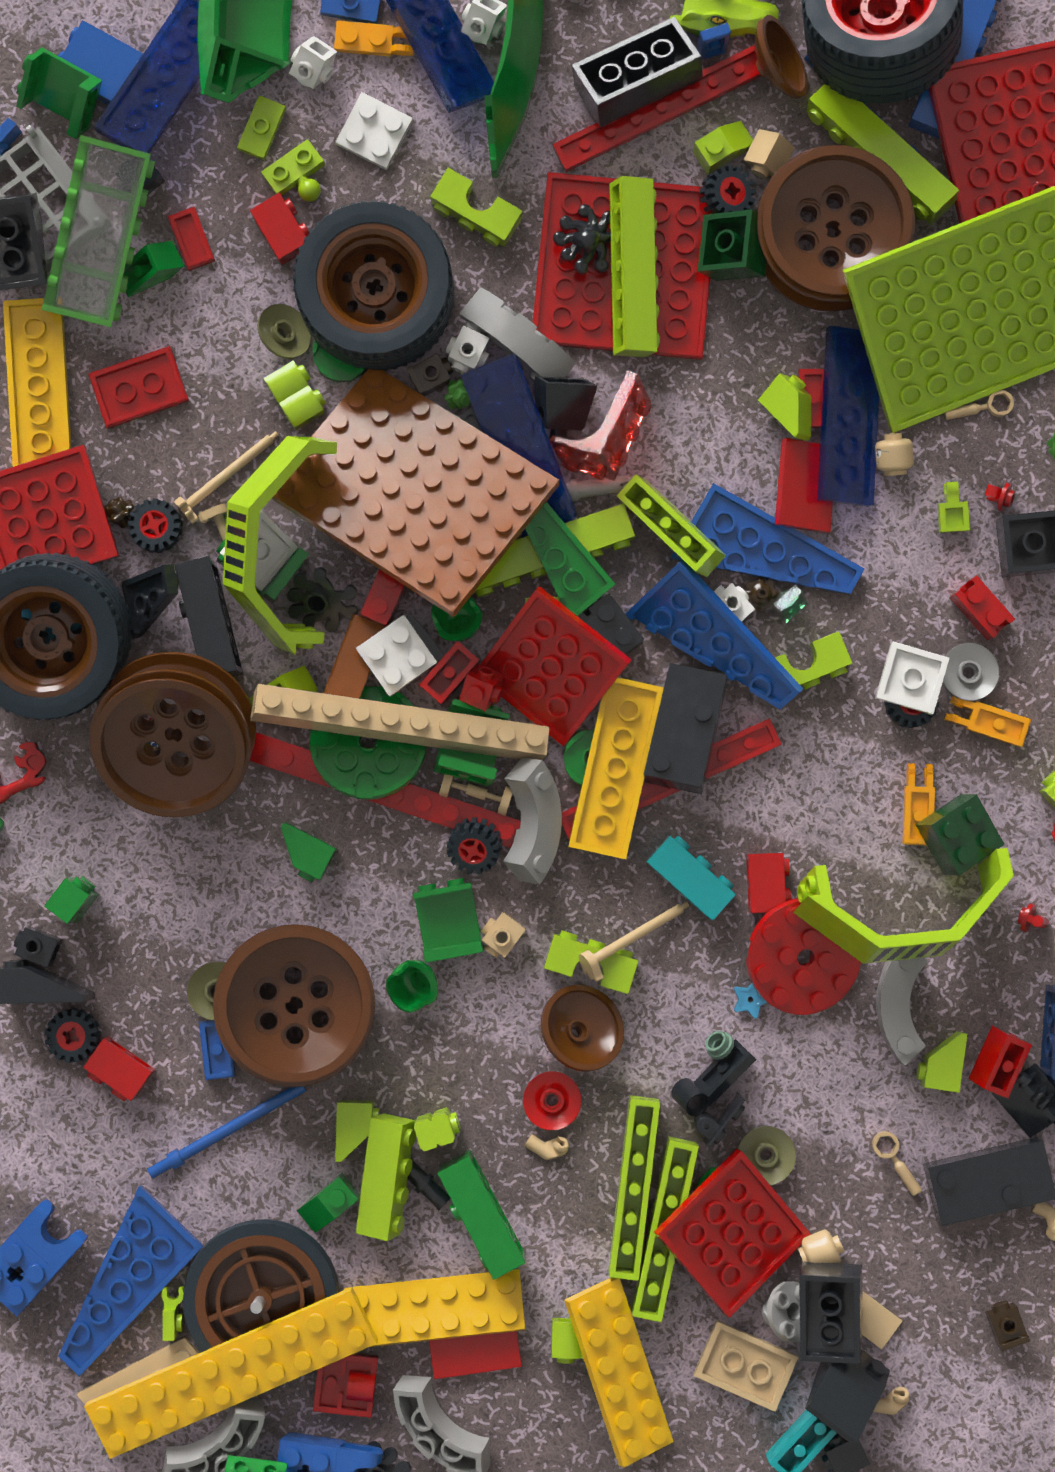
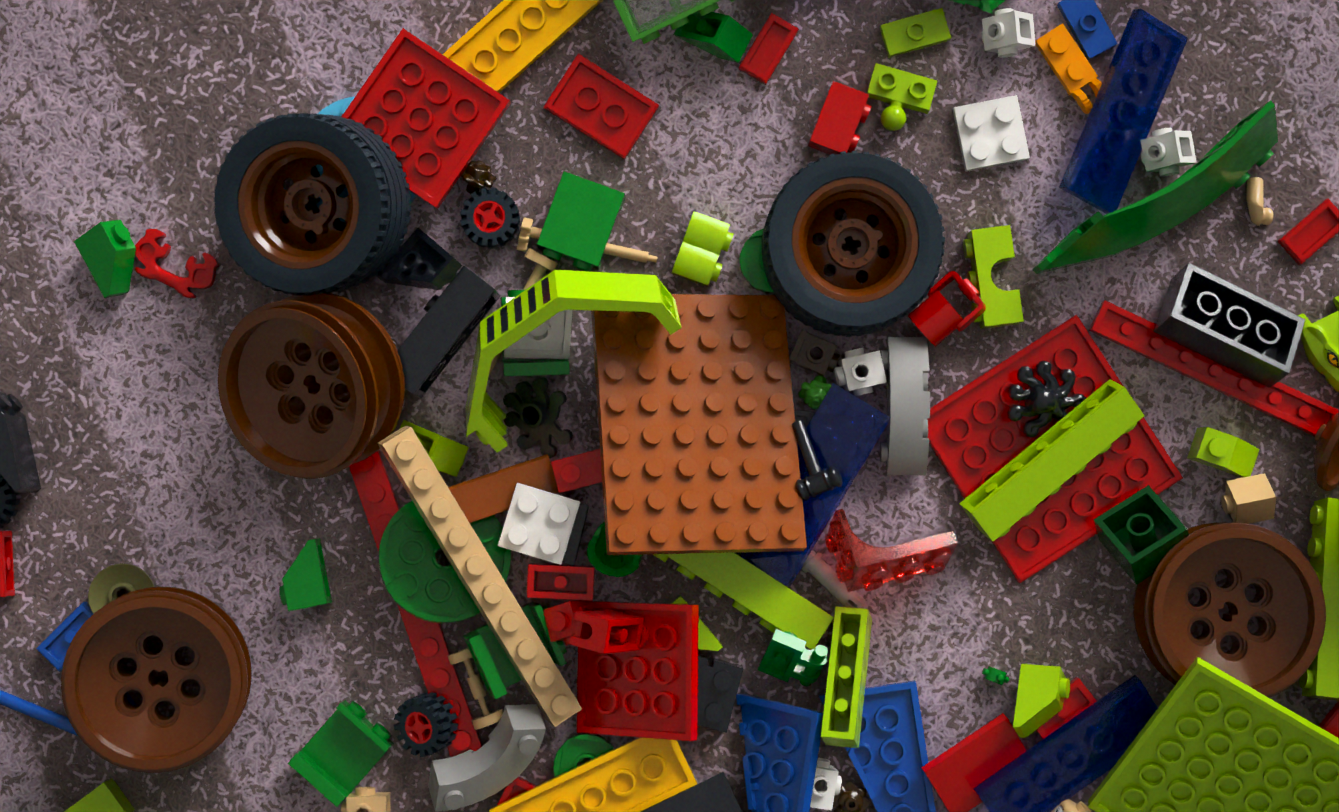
camera: 50 degrees right, 0 degrees up
(37, 946) = (40, 408): black brick -> none
(72, 899) = (102, 407): green brick -> none
(207, 463) = (580, 221): none -> green panel
(287, 322) = (761, 193): olive dish -> none
(412, 985) = (259, 767): green helmet -> none
(472, 268) = (938, 318): none -> red piece
(502, 667) = (599, 631): none -> red brick
(519, 436) = (819, 480): none -> black piece
(563, 403) = (880, 494): black torso -> none
(567, 562) = (739, 614): green wing -> none
(621, 555) = (789, 658): none -> green plate
(713, 41) = (1312, 371): blue plate -> none
(716, 193) = (1174, 486): black wheel -> none
(753, 425) = (995, 675): none -> green piece

